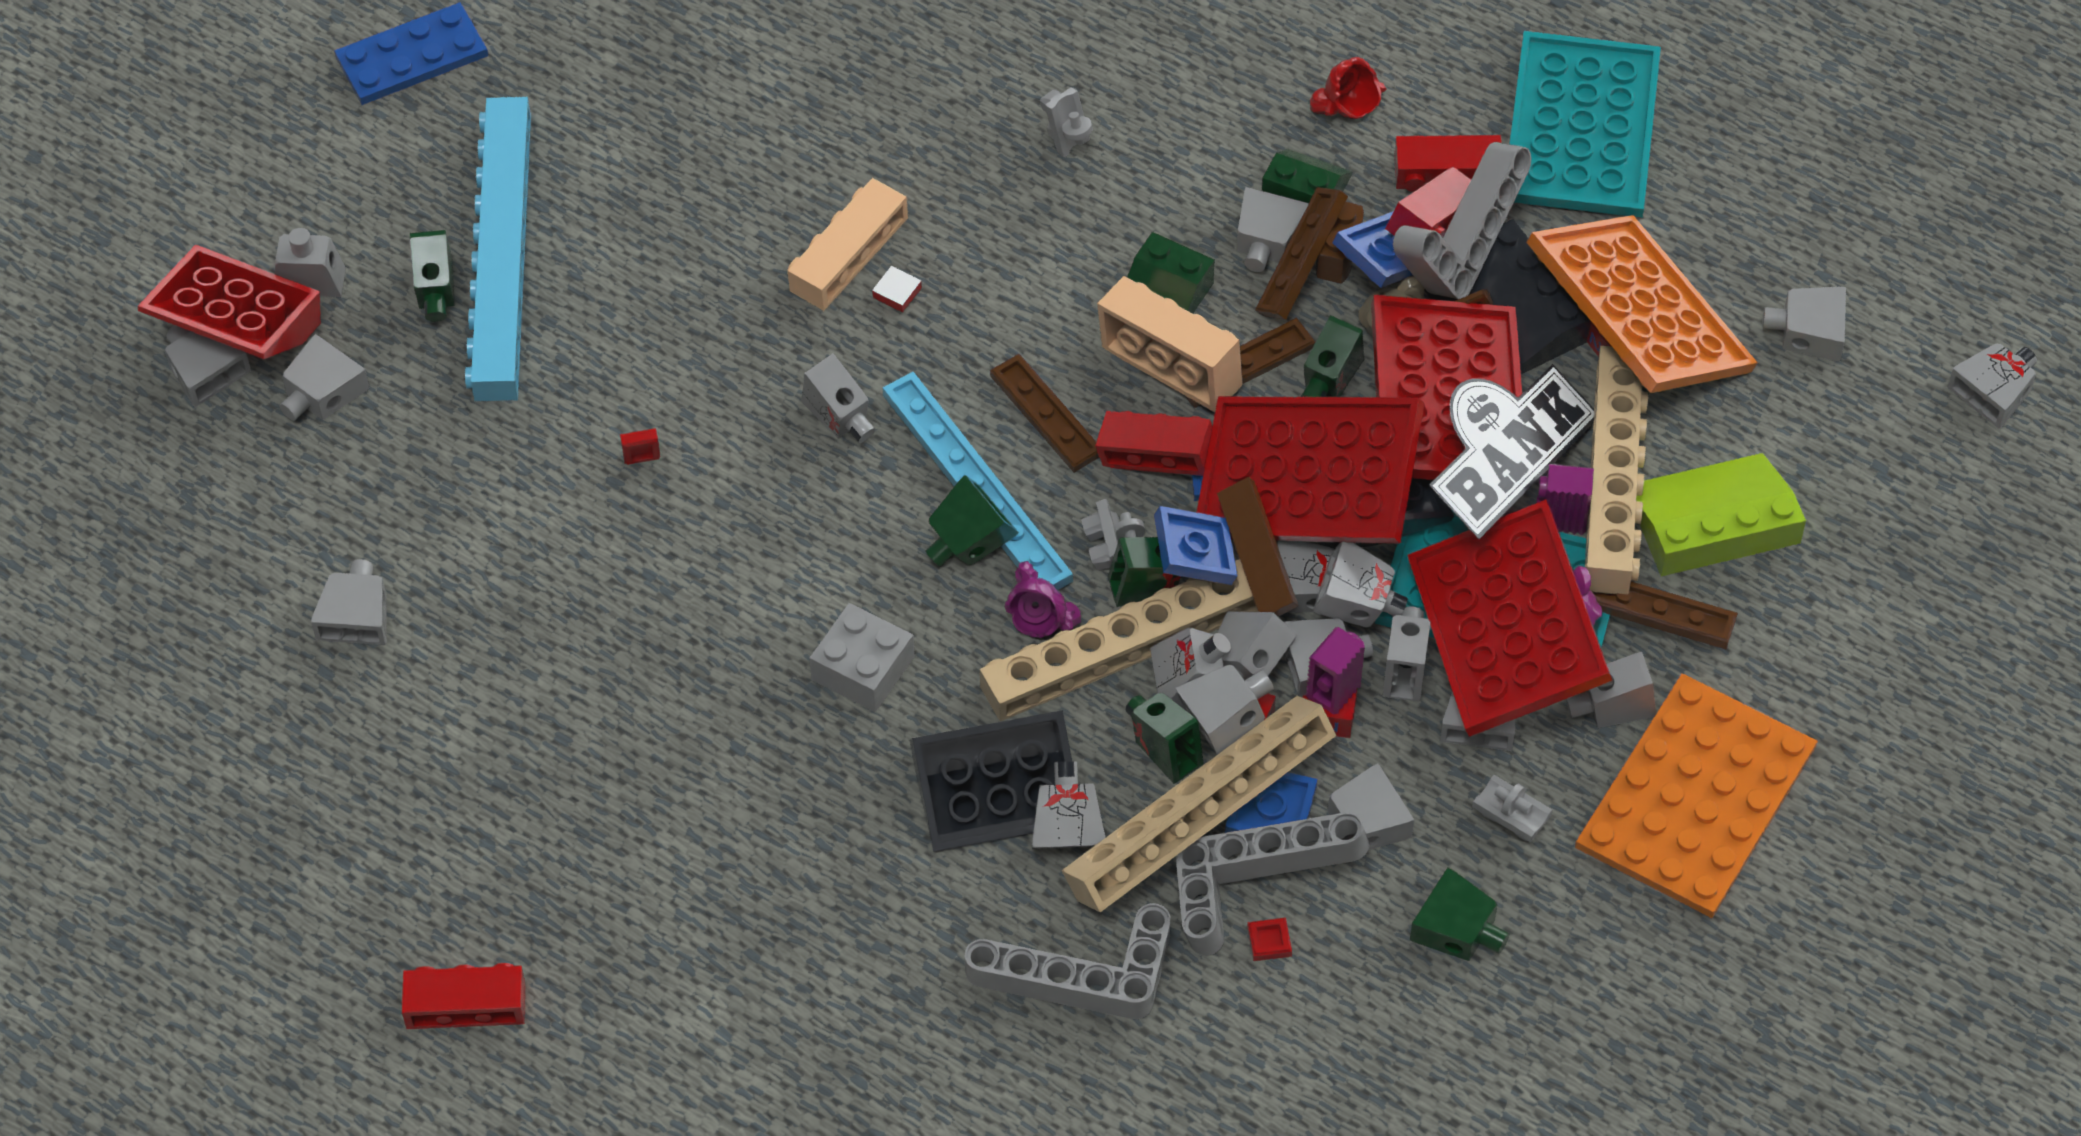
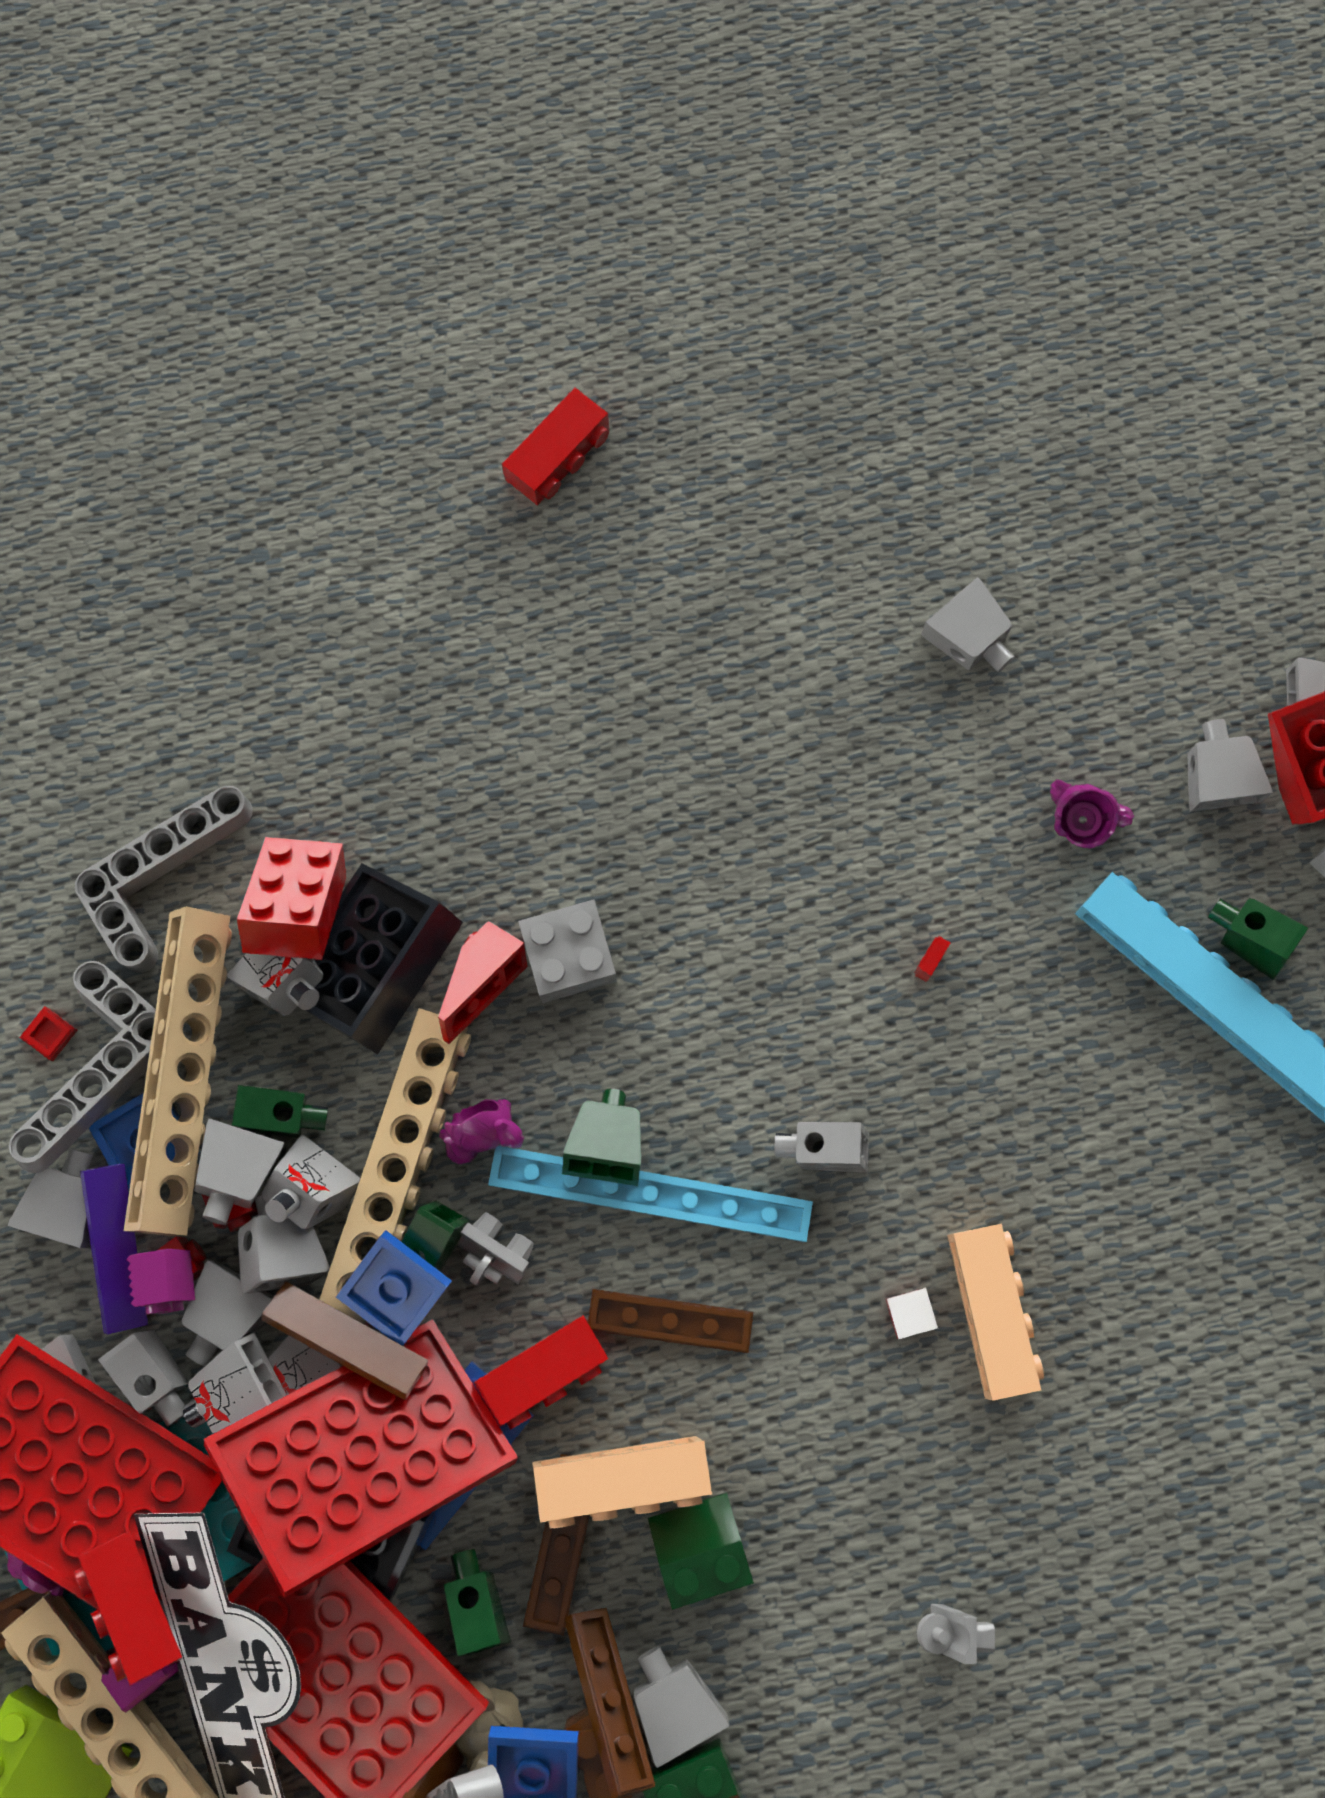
camera: 135 degrees right, 20 degrees up
(437, 431) = (1094, 804): none -> magenta hair
(936, 686) = (482, 972): none -> slope
(1005, 839) = (292, 898): none -> brick
(1355, 749) = (106, 1207): none -> dark purple tile
(1531, 496) = (127, 1609): none -> red brick

